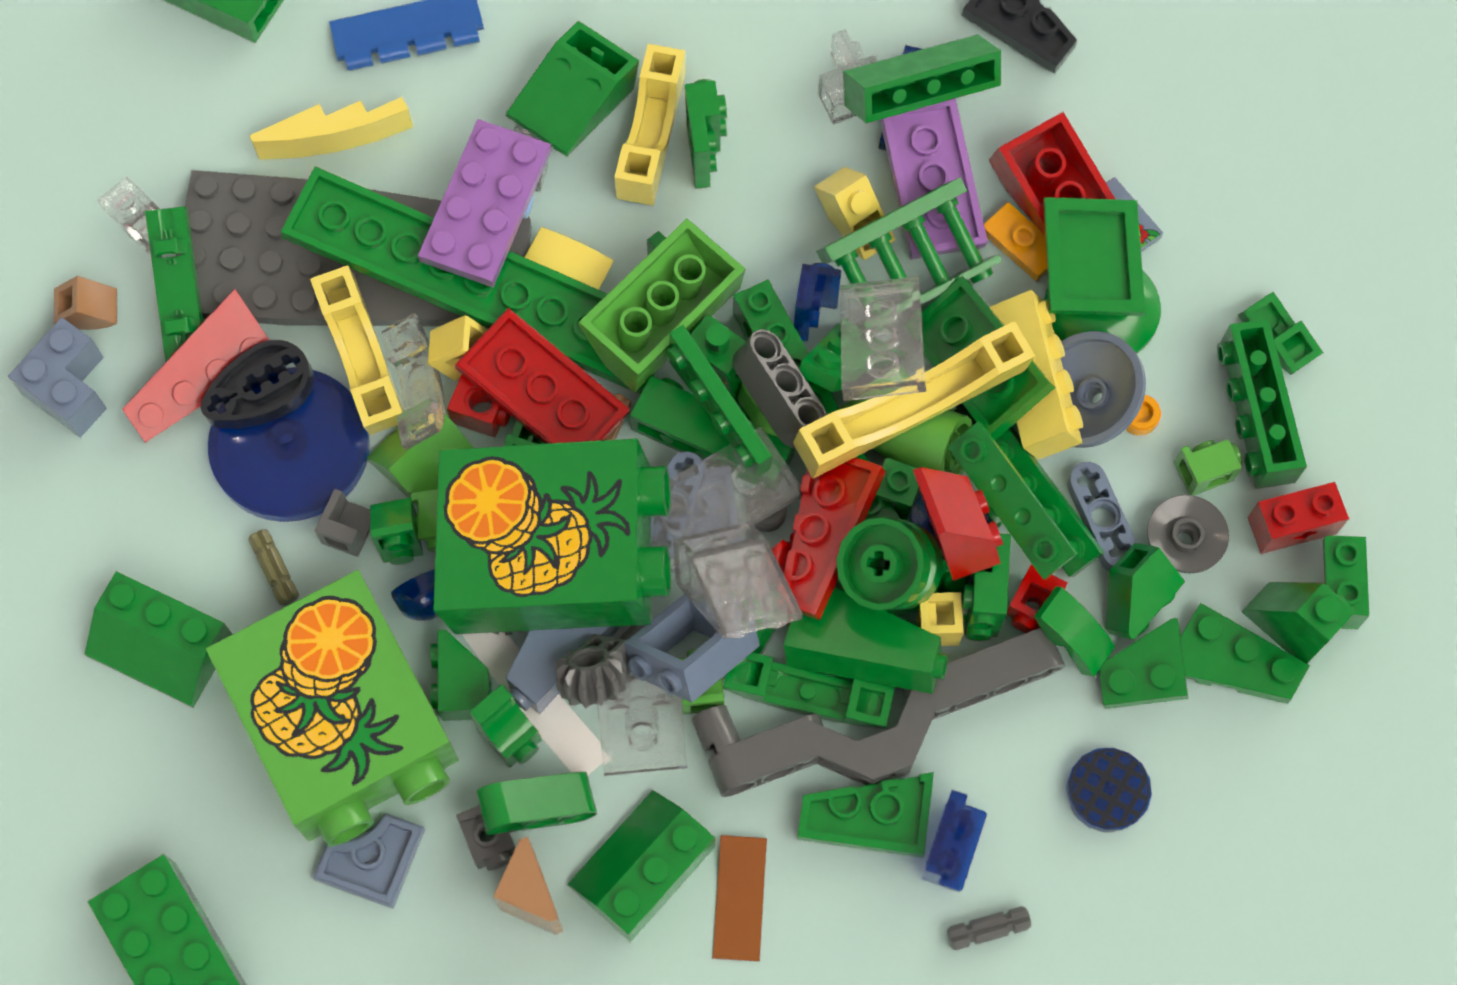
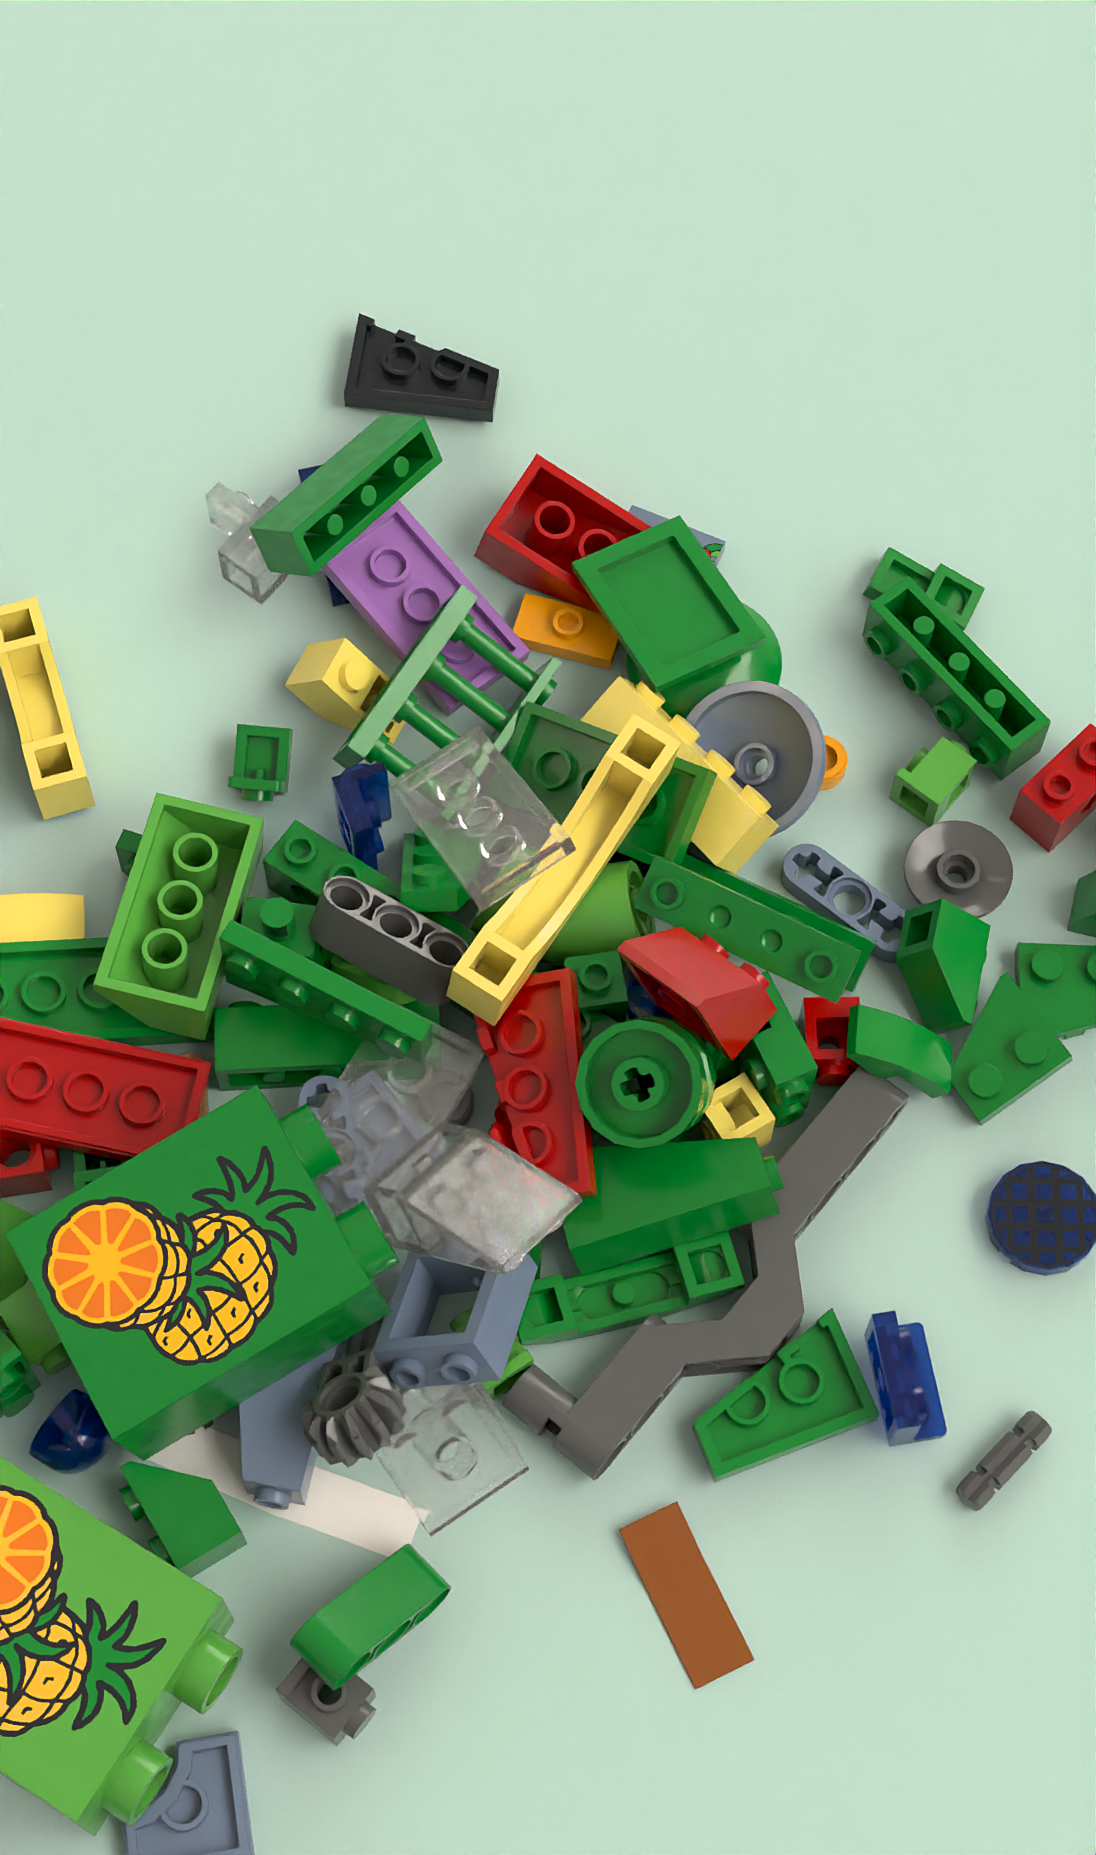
camera: 30 degrees left, 5 degrees down
(506, 727) = (277, 1543): green arch -> none
(525, 892) = (427, 1737): medium nougat slope -> none
(643, 864) = (542, 1619): green slope -> none
(705, 127) = (110, 680): green plate -> none
(771, 230) = (261, 761): none -> green bracket

